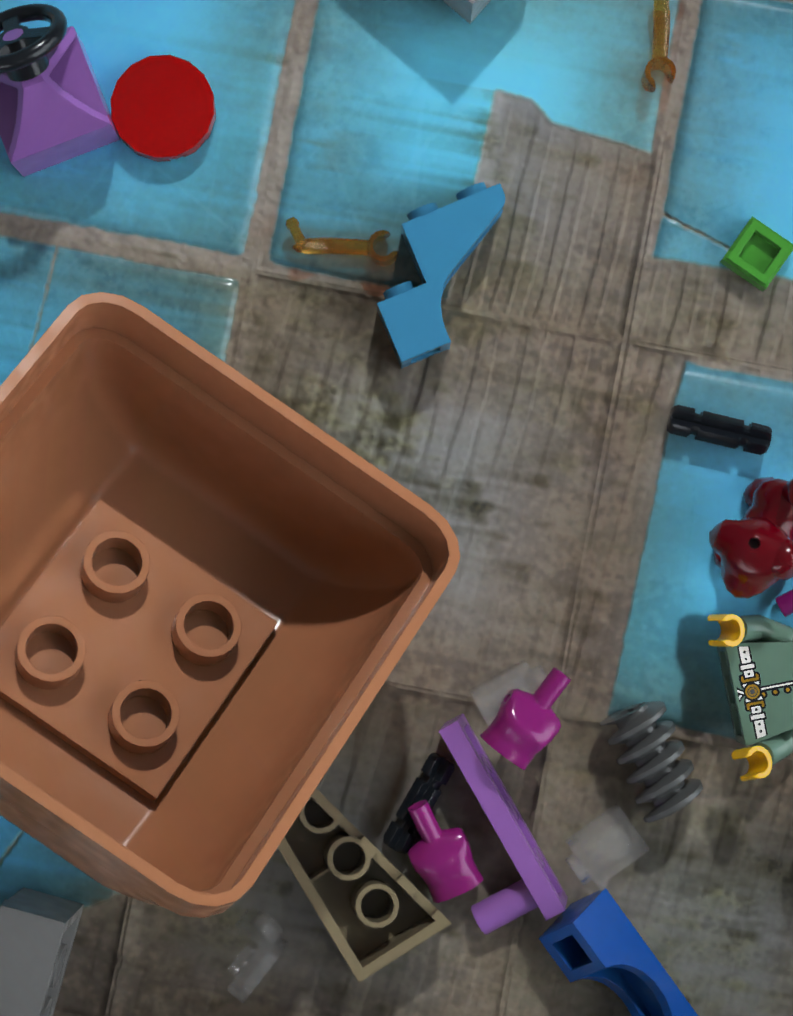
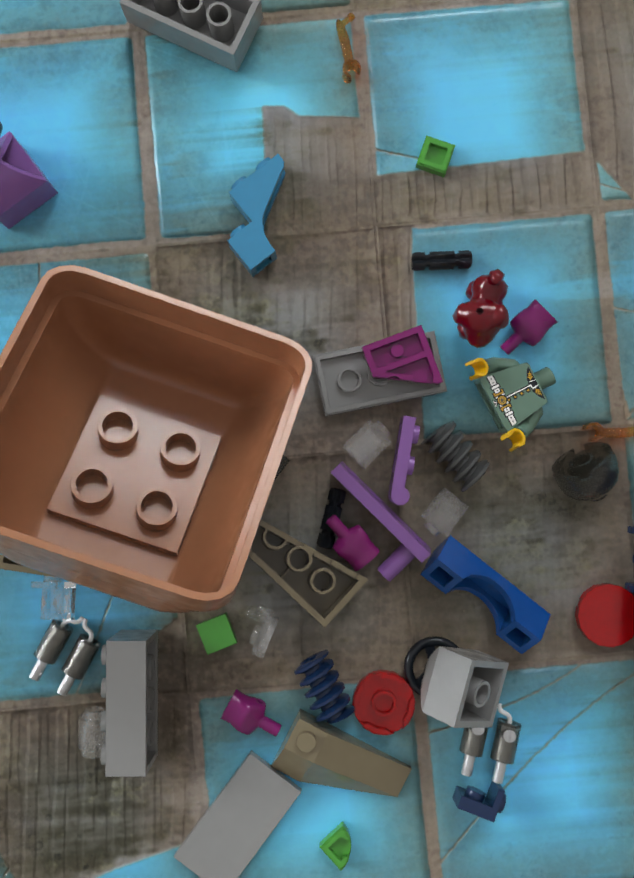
camera: 15 degrees left, 0 degrees up
(163, 108) = (76, 167): red tile -> none
(177, 940) = (216, 633): none -> bright green tile
(340, 246) = (201, 216): clear orange piece -> none
(526, 721) = (378, 451): magenta piece -> none
(565, 587) = (348, 384): none -> light grey tile
(580, 704) = (403, 462): none -> medium lavender plate
(610, 576) = (403, 358): none -> magenta wing

